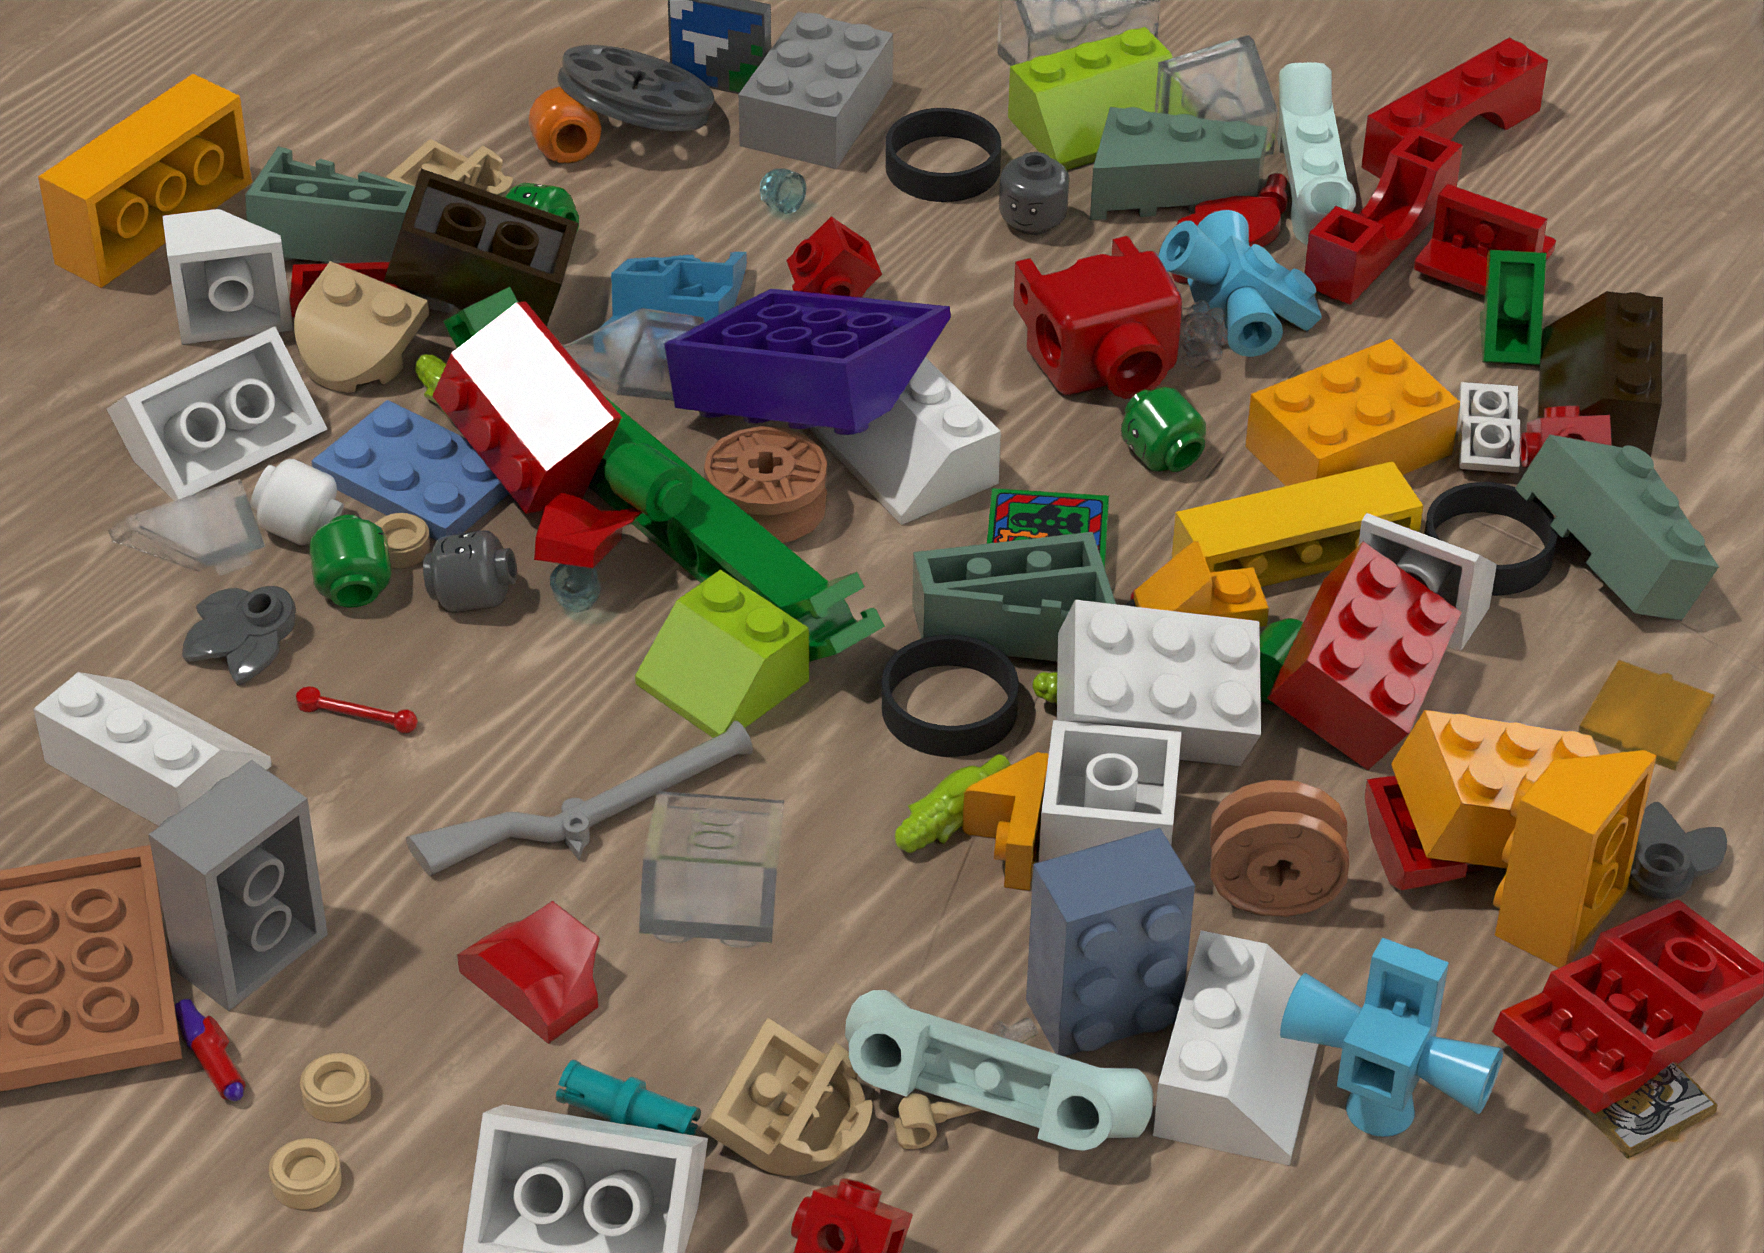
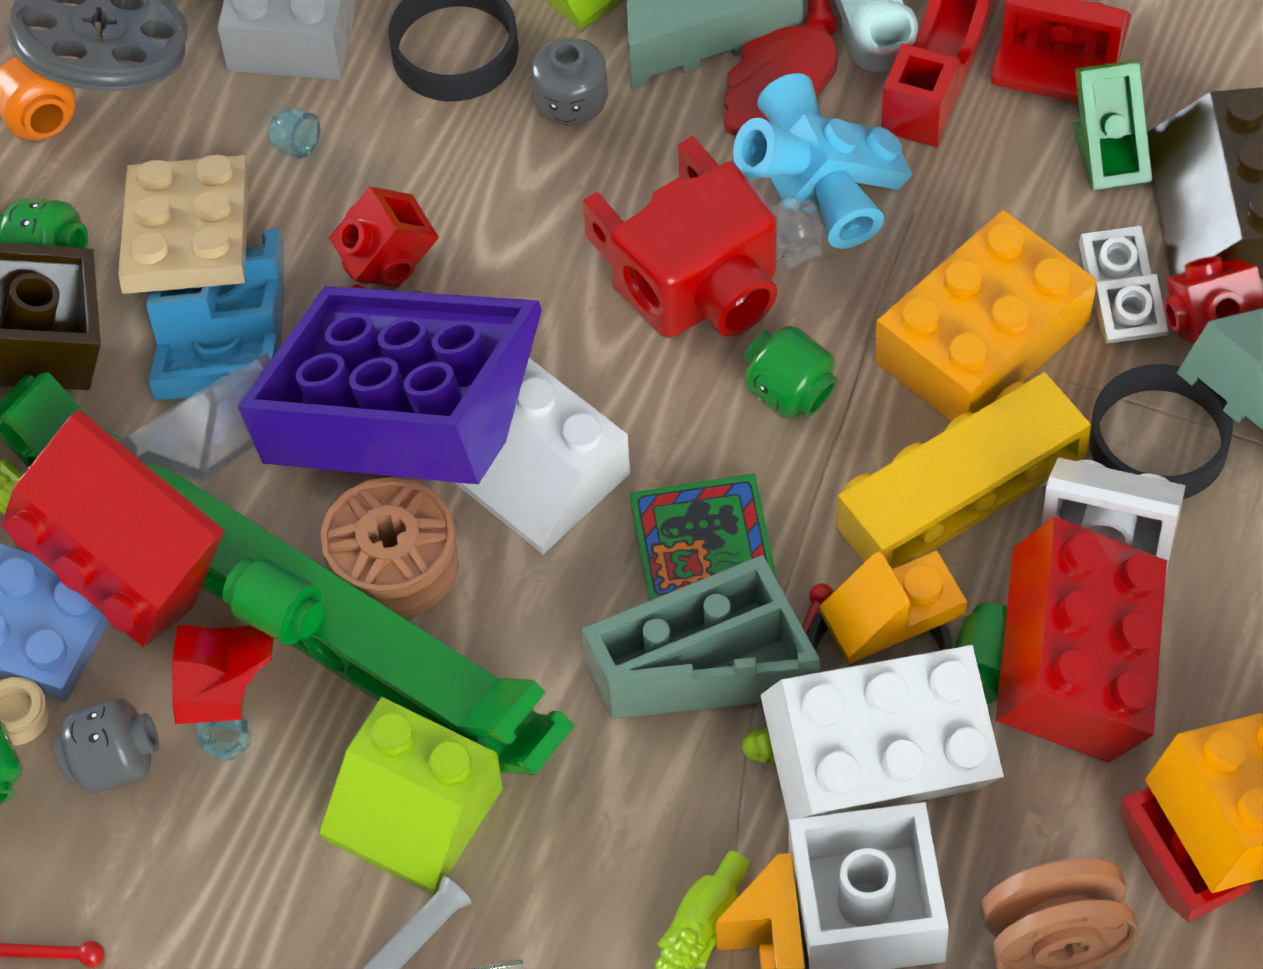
camera: 10 degrees left, 15 degrees up
(664, 229) = (184, 224): none -> tan plate
(950, 651) = (658, 718): black tyre -> none

